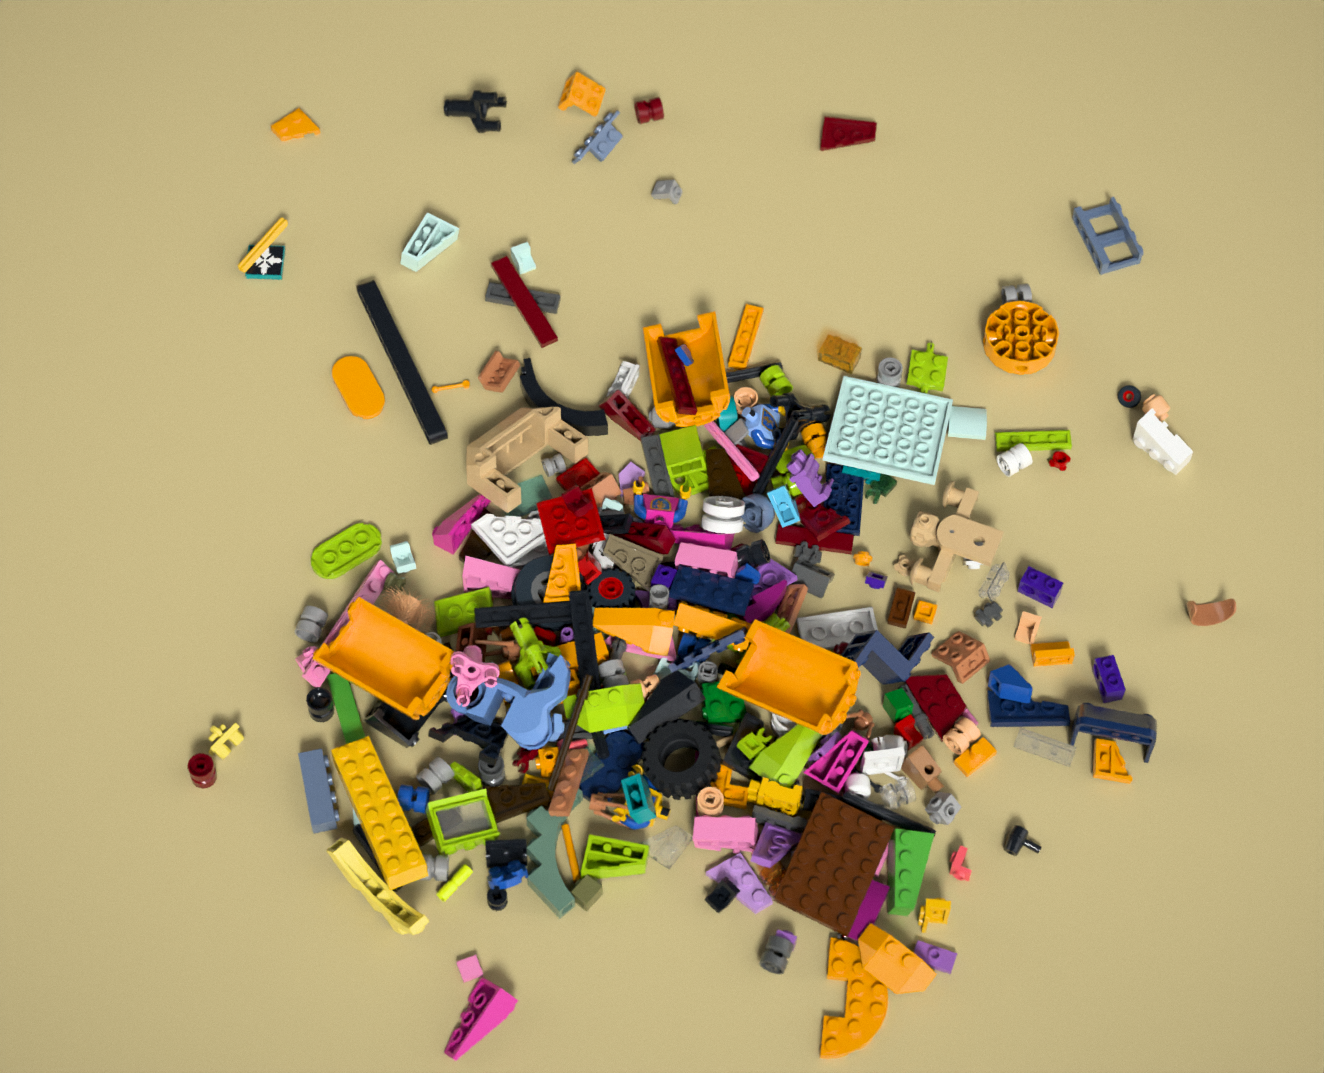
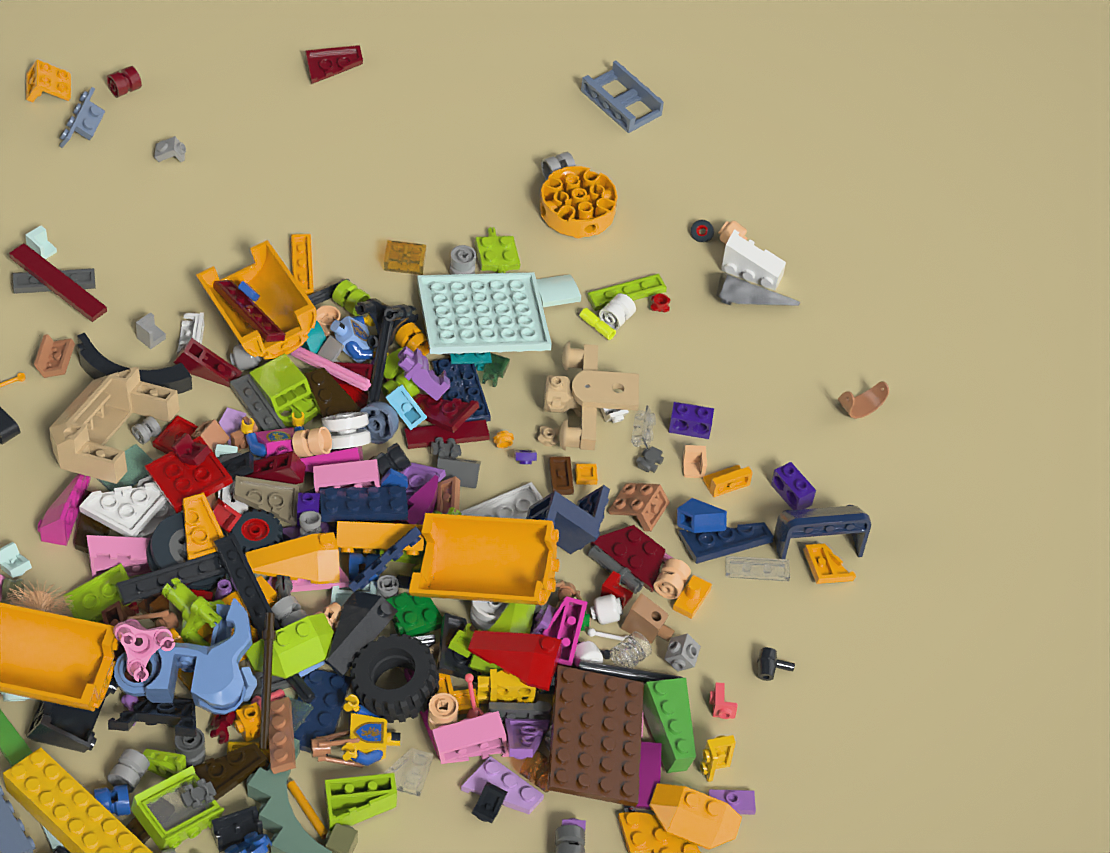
camera: 25 degrees left, 10 degrees down
(478, 816) = (194, 796): none -> dark grey piece
(588, 370) = (148, 332): none -> light grey panel
(638, 798) = (366, 727): teal brick -> none
(687, 519) = (312, 442): none -> light nougat wheel
(740, 810) = (474, 712): none -> coral hinge
(794, 775) = (524, 655): none -> red wedge
(881, 759) = (603, 621): white tile -> none
(897, 705) = (596, 566): green brick -> none
(994, 468) = (600, 326): none -> neon yellow piece
(1138, 469) = (742, 292): none -> wedge

